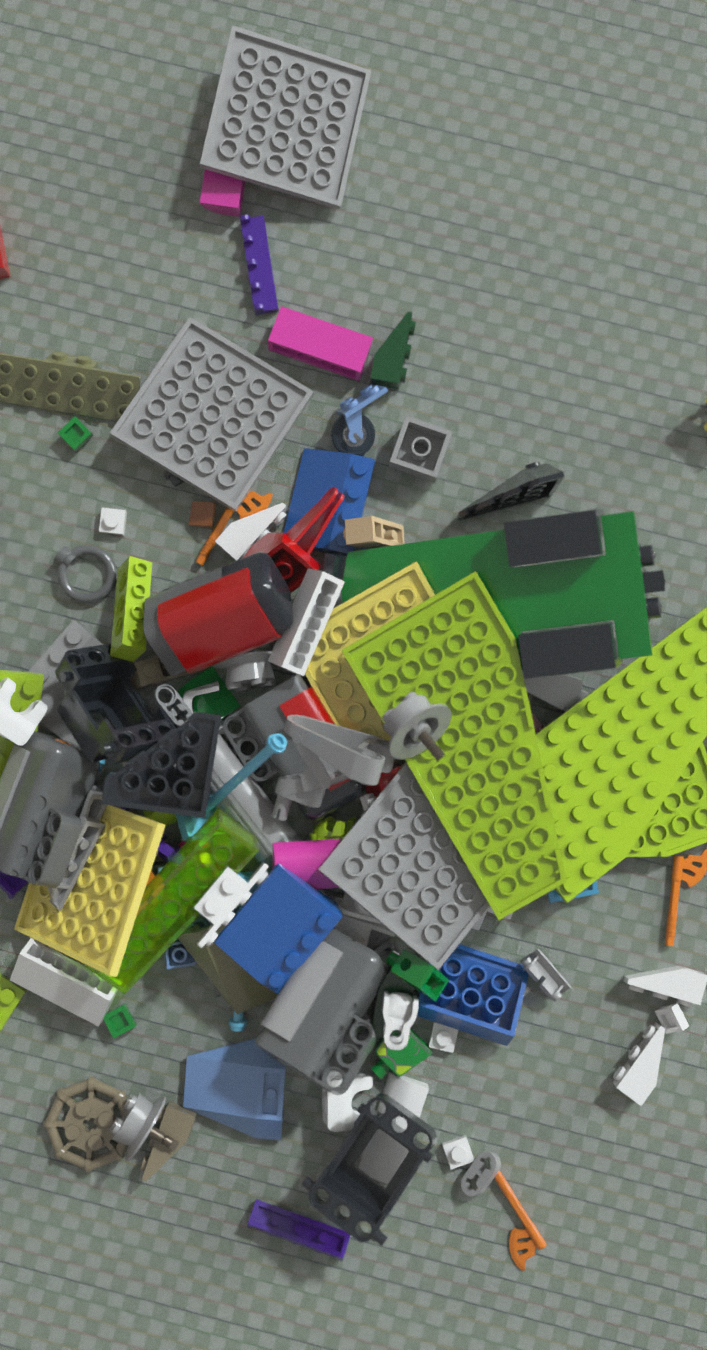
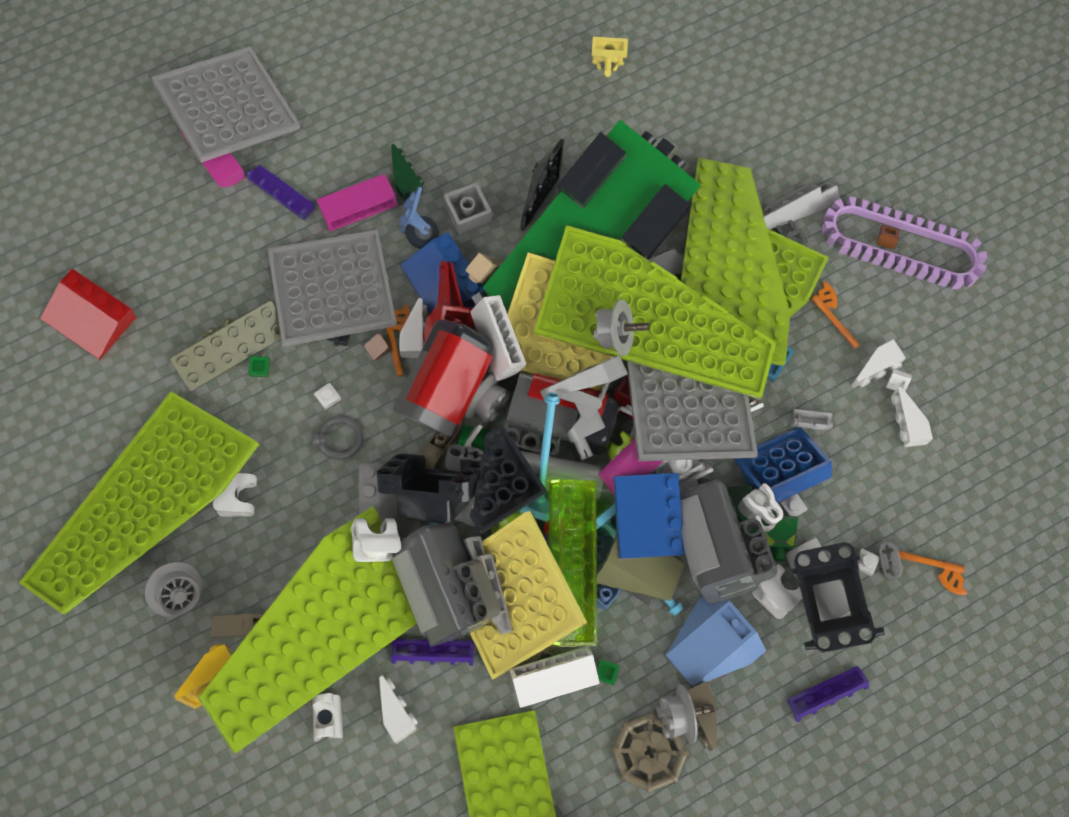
camera: 55 degrees left, 15 degrees down
(128, 621) = (388, 426): lime brick -> none
(224, 897) = (602, 525): white bracket -> none
(417, 973) = (747, 474): green torso -> none

